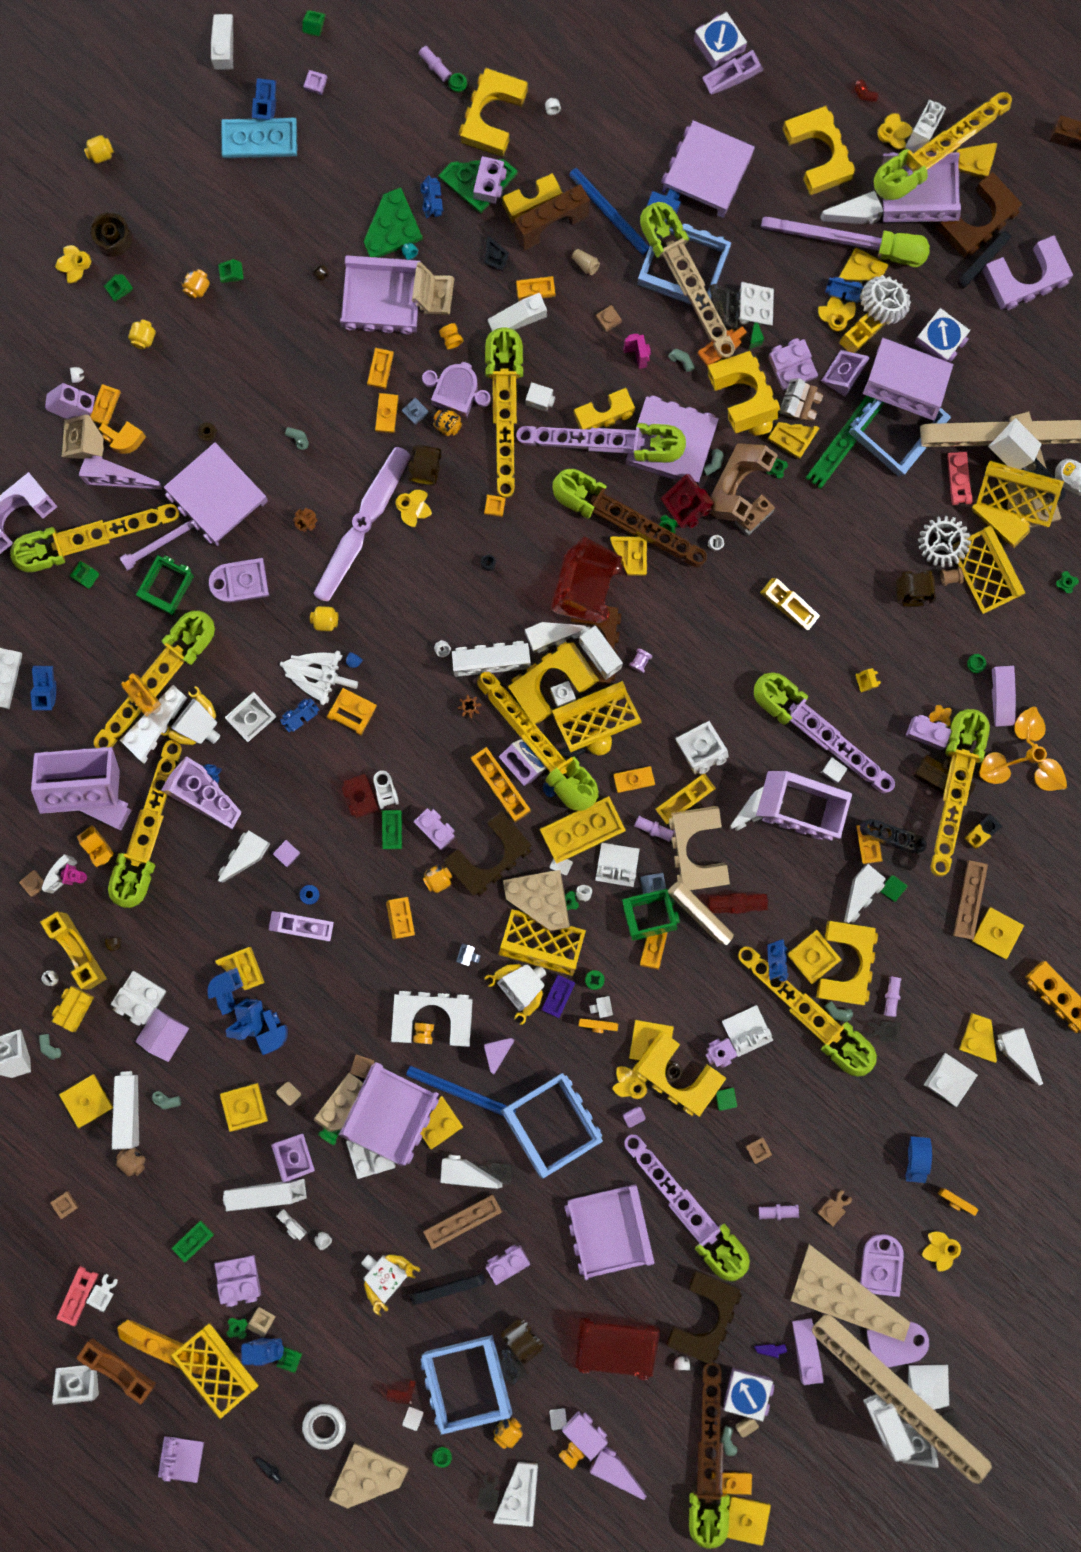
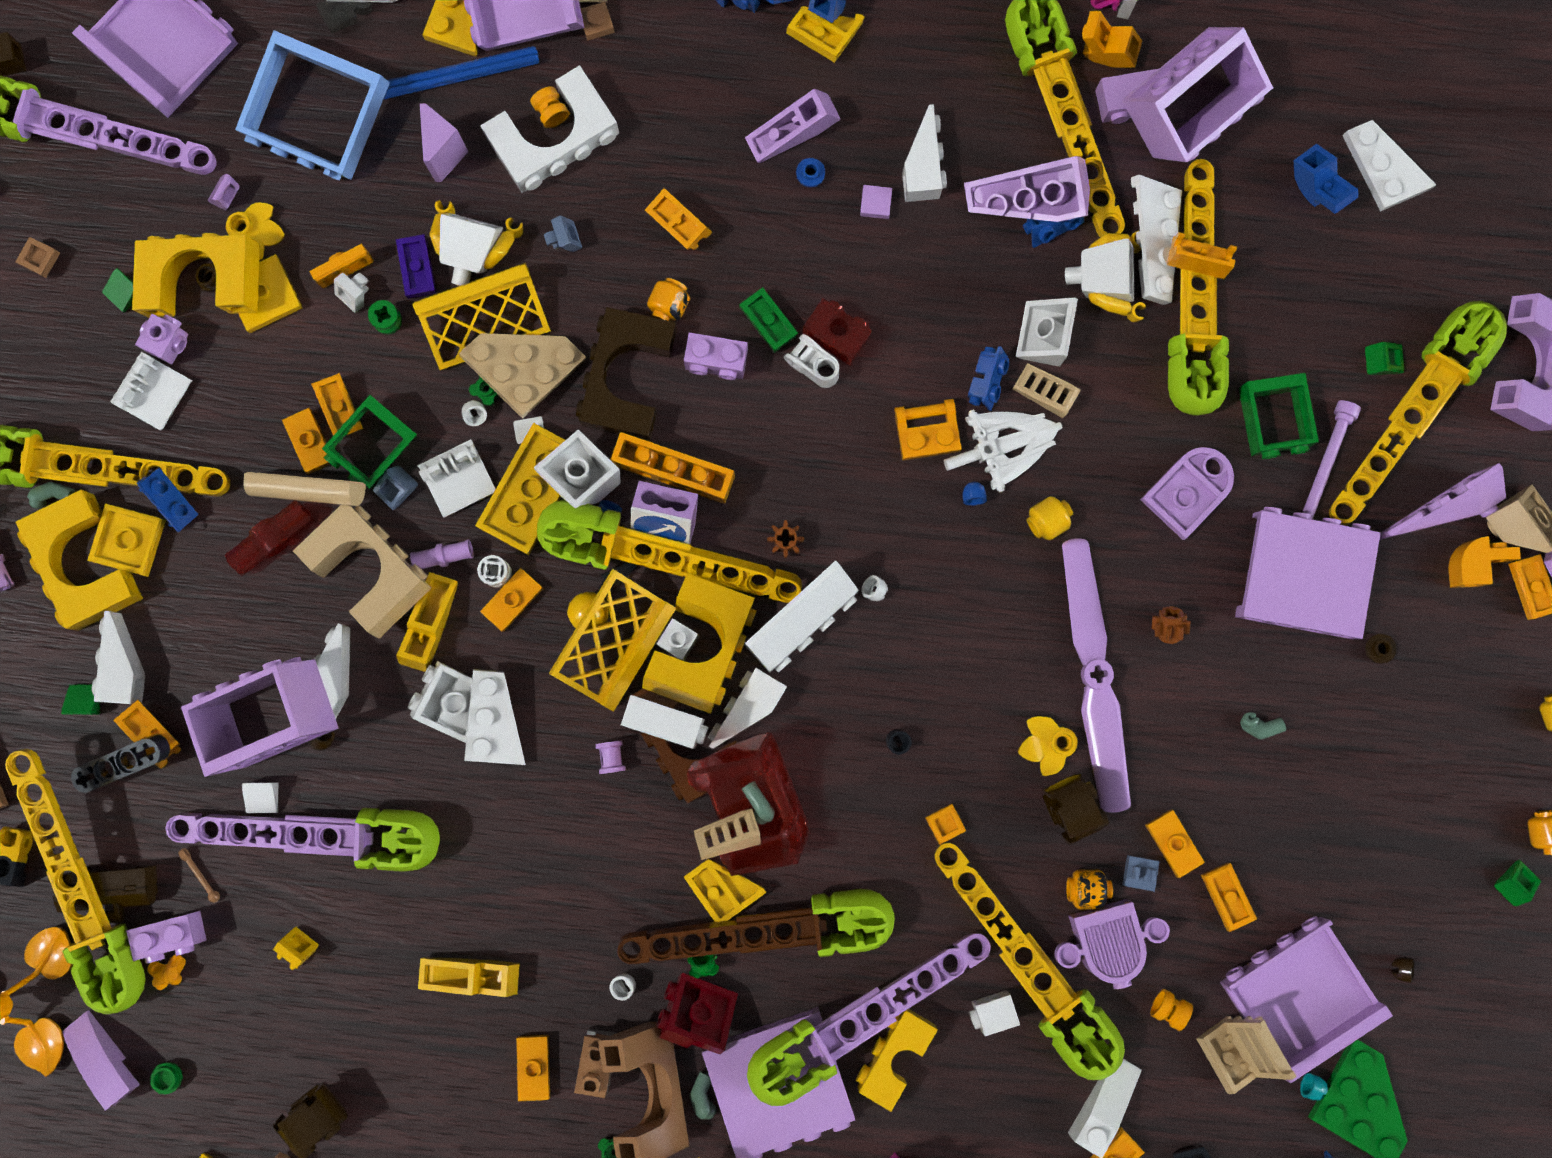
camera: 145 degrees right, 0 degrees up
(273, 669) = (1051, 381): none -> tan slope
(551, 817) = (579, 471): none -> white slope
(581, 576) = (763, 810): none -> sand green arm
(592, 578) = (741, 841): none -> tan slope
(631, 802) = (499, 571): none -> white wheel
(682, 943) = (306, 440): none -> light orange plate
(688, 722) = (491, 721): none -> white wing
(789, 536) = (533, 1068): none -> light orange plate
(892, 737) = (213, 896): none -> medium nougat hinge

